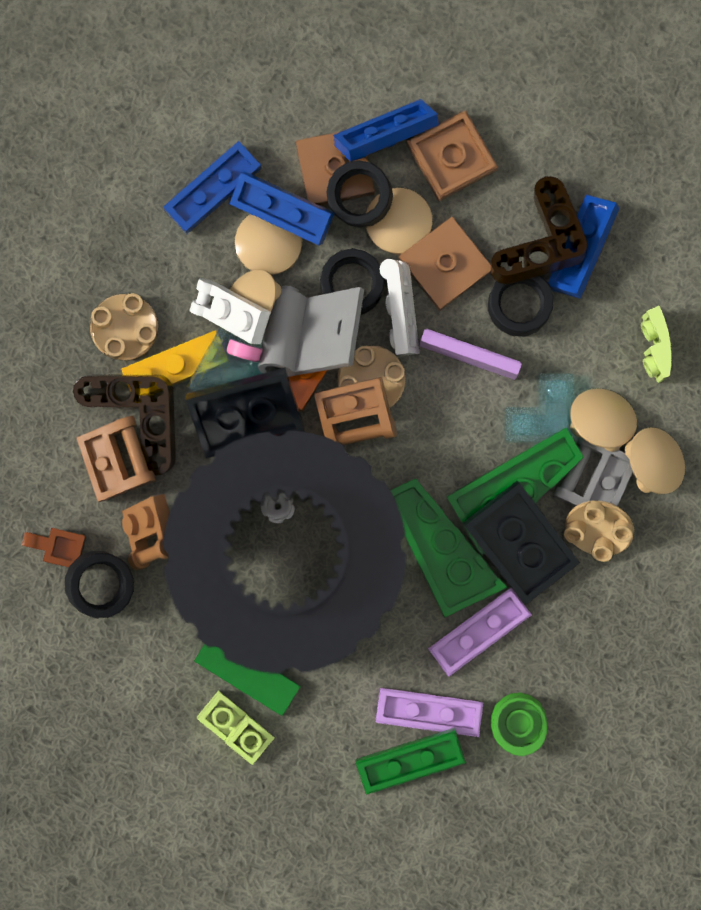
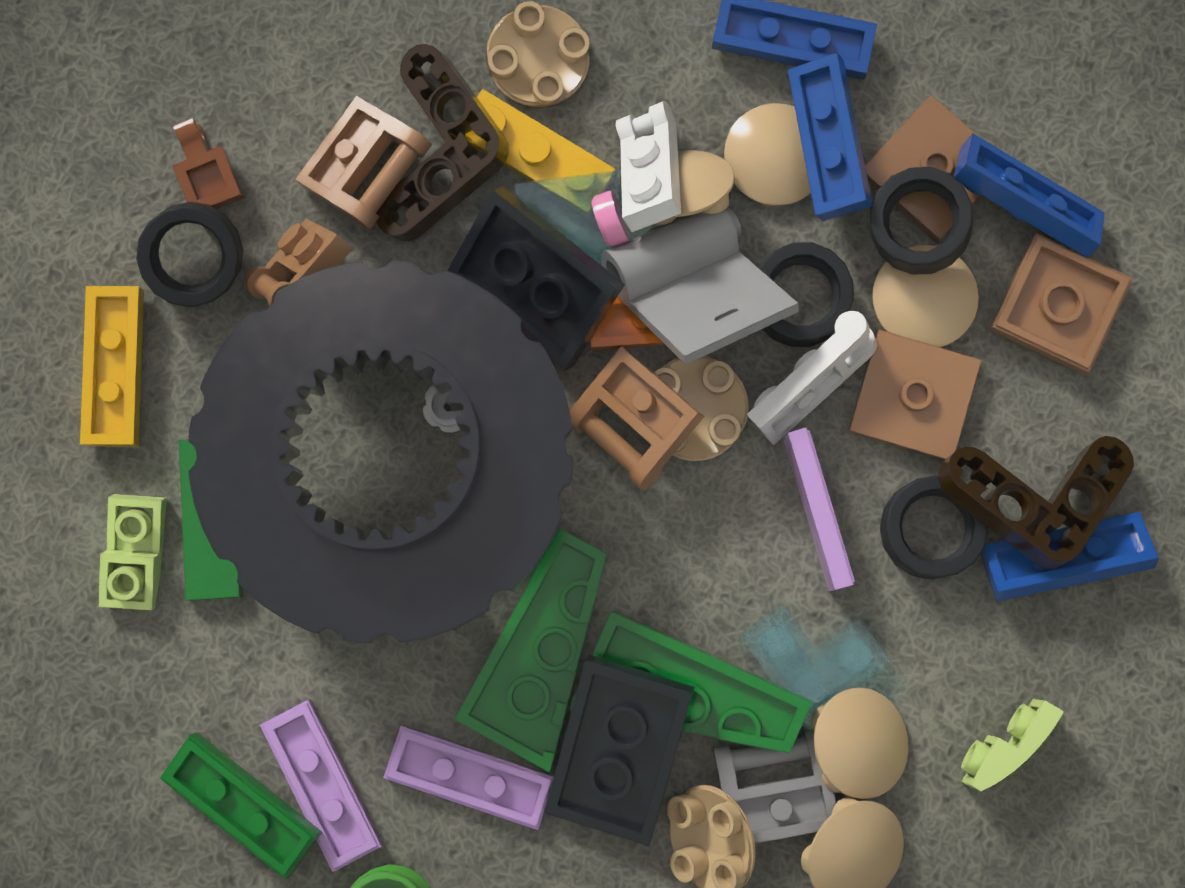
camera: 60 degrees right, 0 degrees up
(127, 669) = (112, 366): none -> yellow plate

